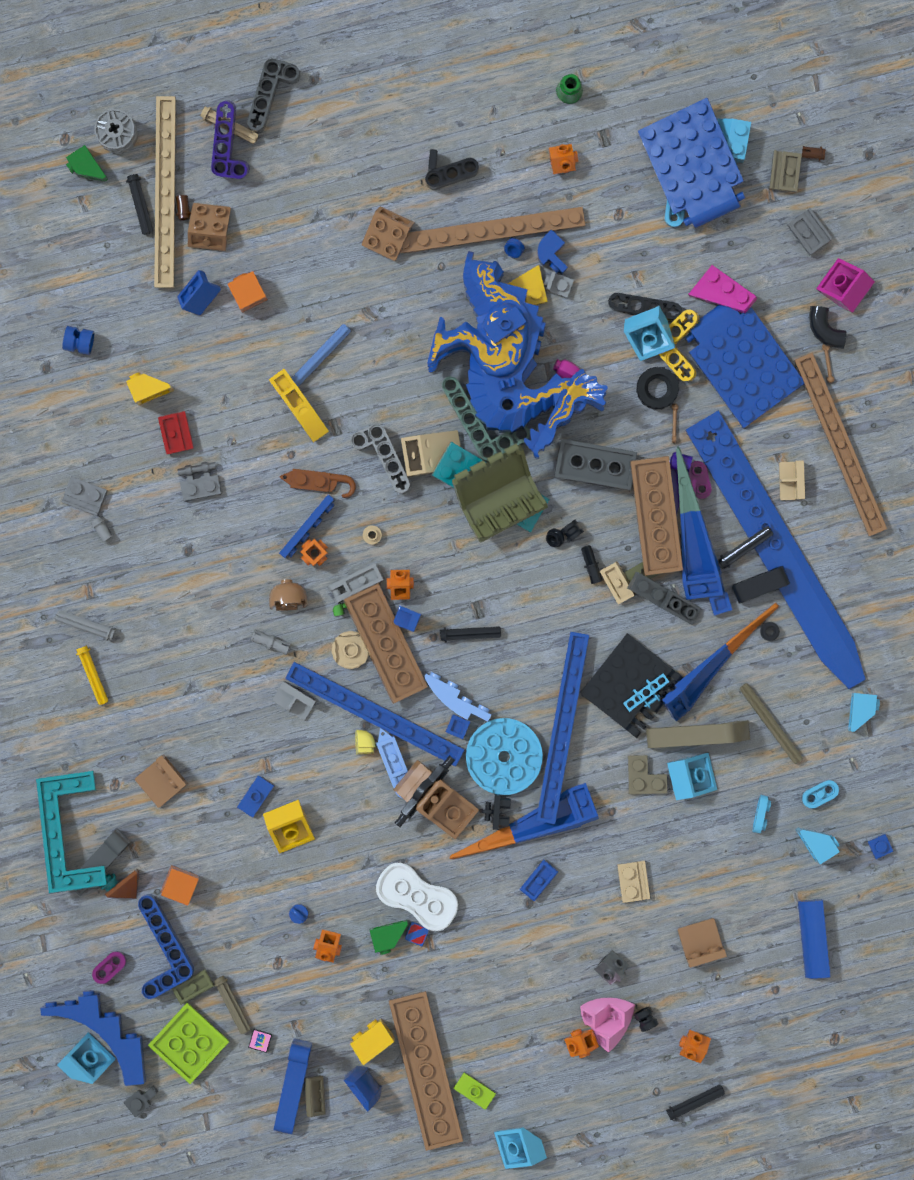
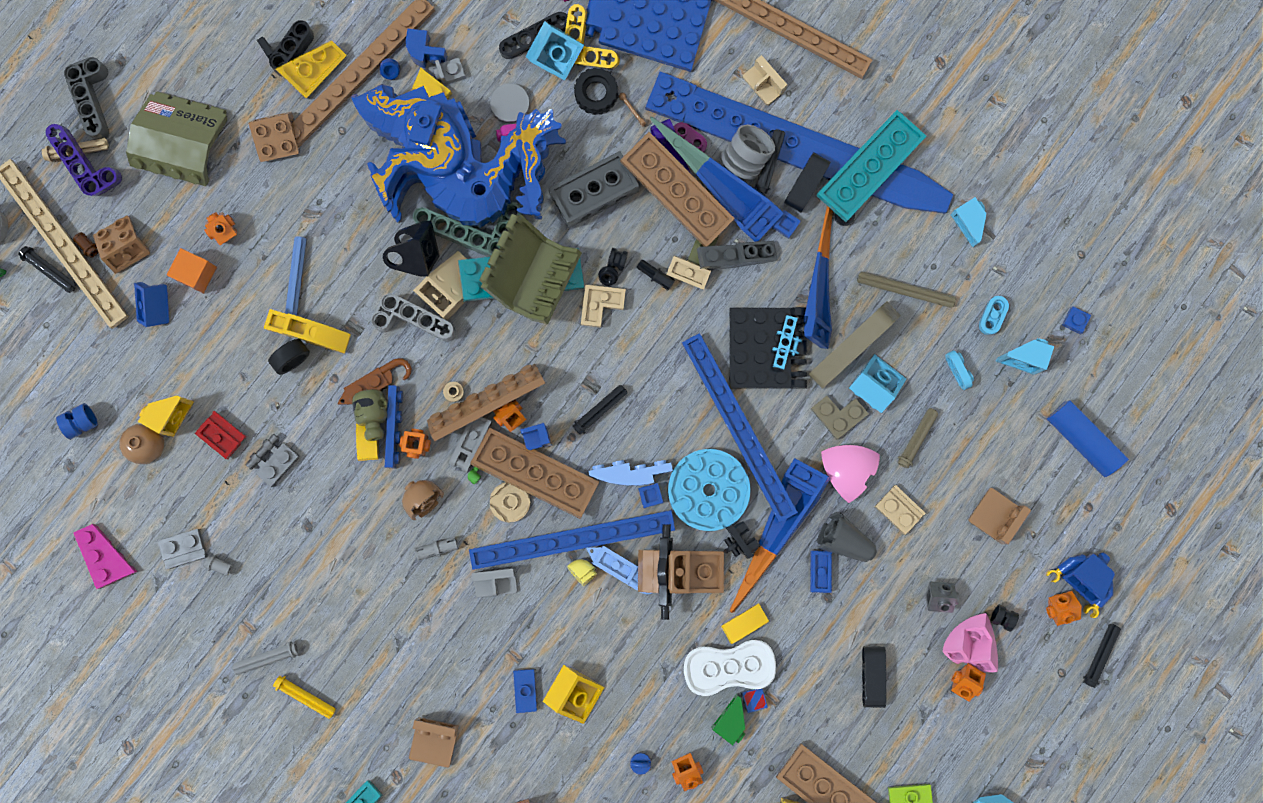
camera: 40 degrees left, 5 degrees down
(20, 457) = (101, 557): none -> dark pink wing
(112, 393) = (141, 444): none -> medium nougat cylinder
(271, 414) = (288, 356): none -> black tyre
(281, 520) = (365, 449): none -> yellow slope
(293, 274) = (220, 235): none -> orange brick
(299, 503) = (370, 411): none -> olive piece
(312, 176) = (174, 137): none -> olive hinge
(390, 562) = (484, 402): none -> medium nougat plate
(425, 412) = (417, 253): none -> black hose
(453, 874) = (744, 623): none -> yellow slope
(456, 202) = (312, 68): none -> yellow wing
(516, 985) = (874, 677): none -> black beam
(533, 549) = (598, 298): none -> tan plate
(575, 871) = (845, 539): none -> dark grey cone
(585, 345) = (508, 102): none -> light grey tile
(619, 822) = (850, 468): none -> bright pink brick
(689, 840) = (917, 439): none -> dark tan axle
(731, 1039) = (1089, 577): none -> blue torso
(732, 528) = (748, 152): none -> light grey wheel
(818, 610) = (871, 165): none -> teal plate

